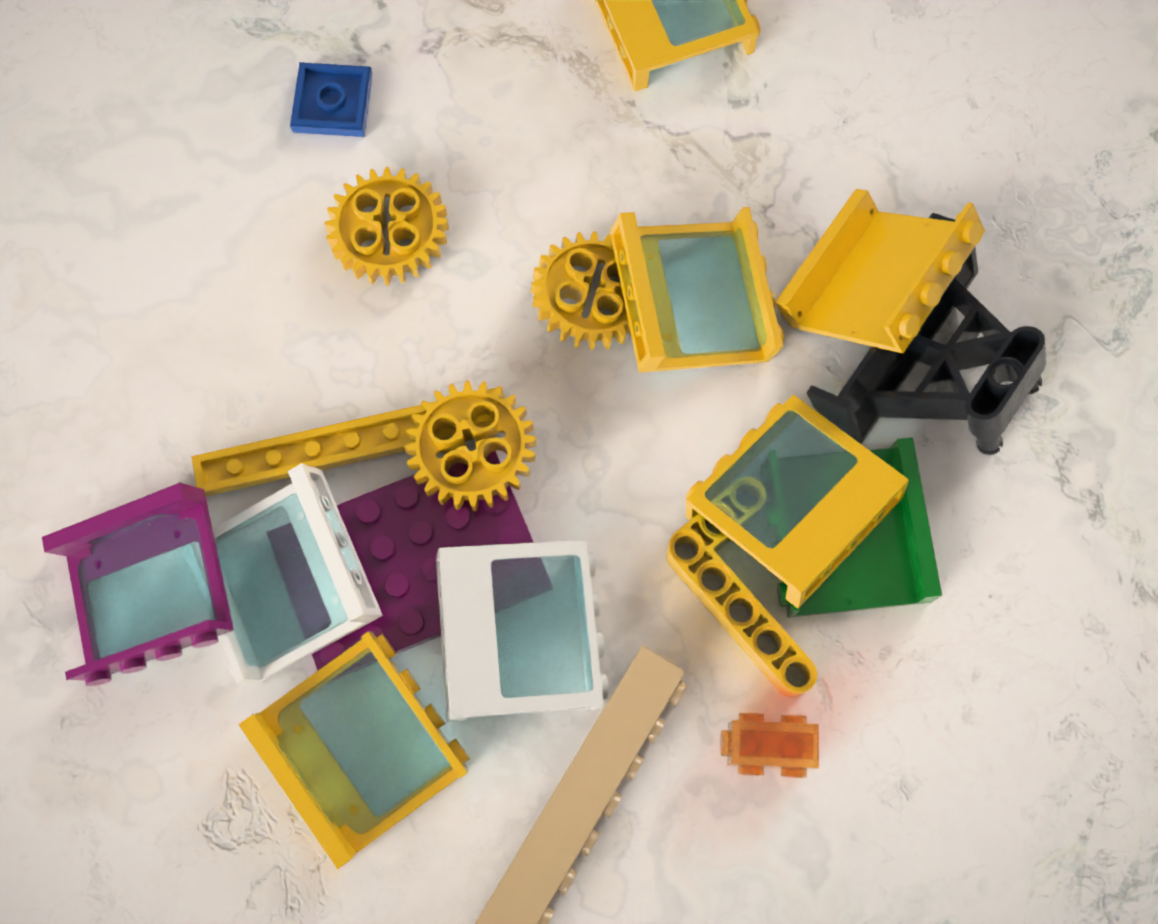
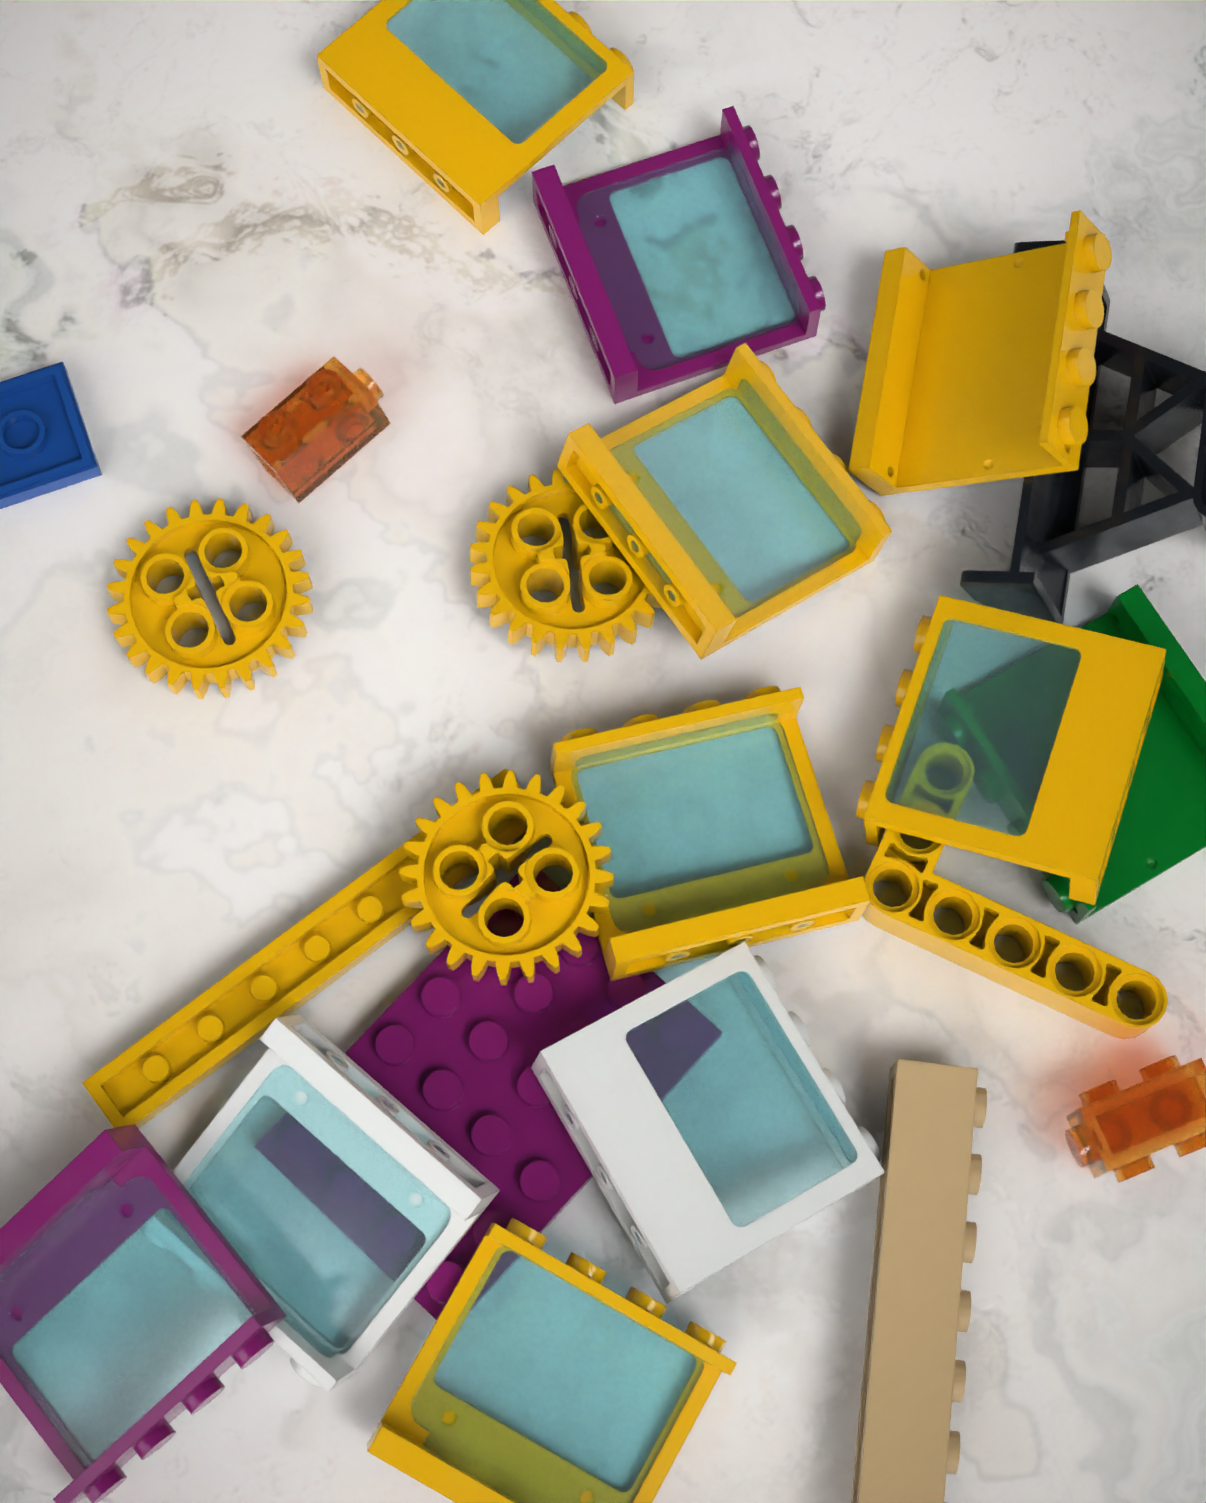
camera: 25 degrees left, 0 degrees up
(489, 157) = (318, 428): none -> clear orange brick
(598, 470) = (707, 831): none -> clear light blue panel
(737, 149) = (679, 261): none -> clear light blue panel

